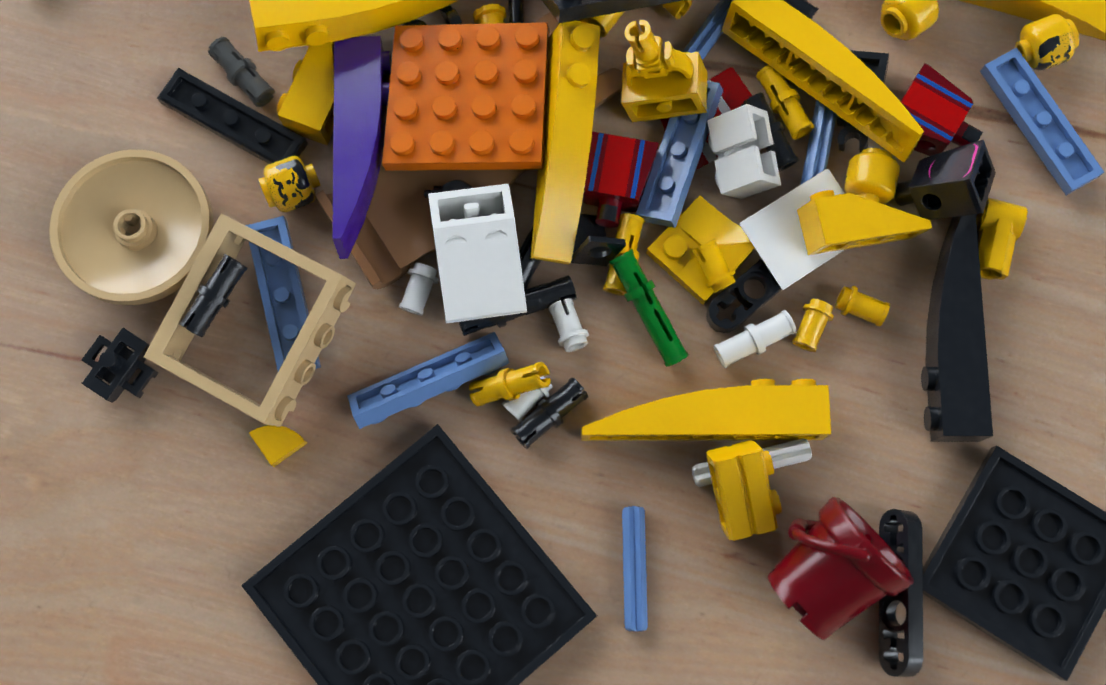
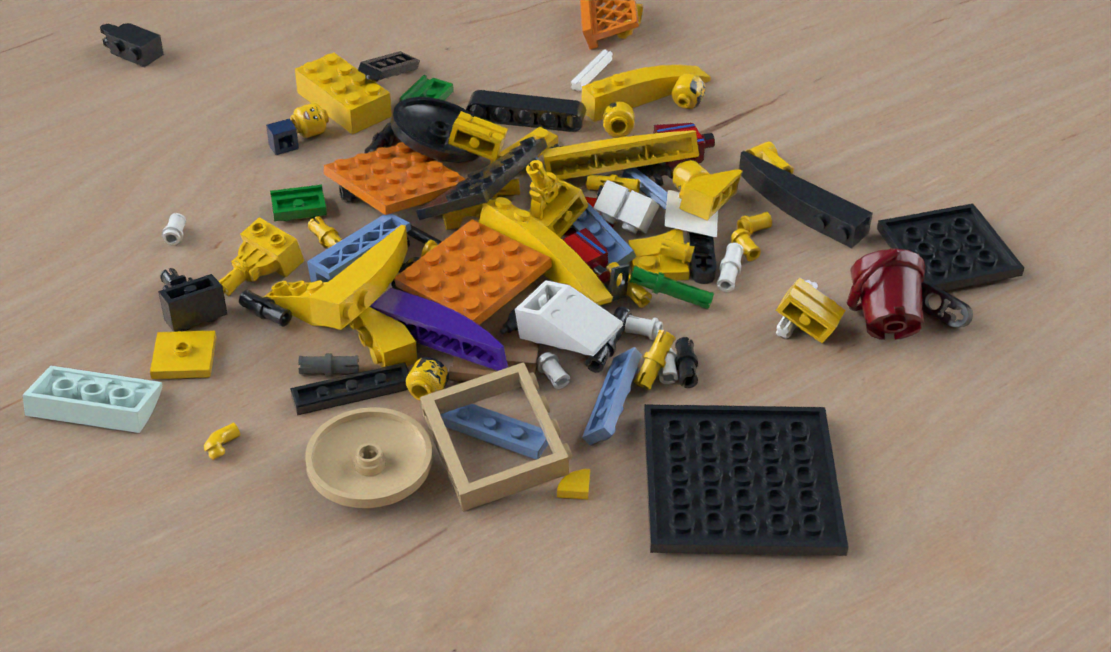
camera: 50 degrees left, 35 degrees down
(61, 66) = (218, 438): none -> yellow arm
(118, 366) = (430, 526): black piece -> none
(213, 295) = (466, 428): black pin -> none
(634, 568) = (811, 384): medium blue axle -> none
(726, 413) = (758, 301): yellow slope -> none
(950, 183) = (727, 149): black torso -> none
(1041, 121) = (725, 117): medium blue plate -> none

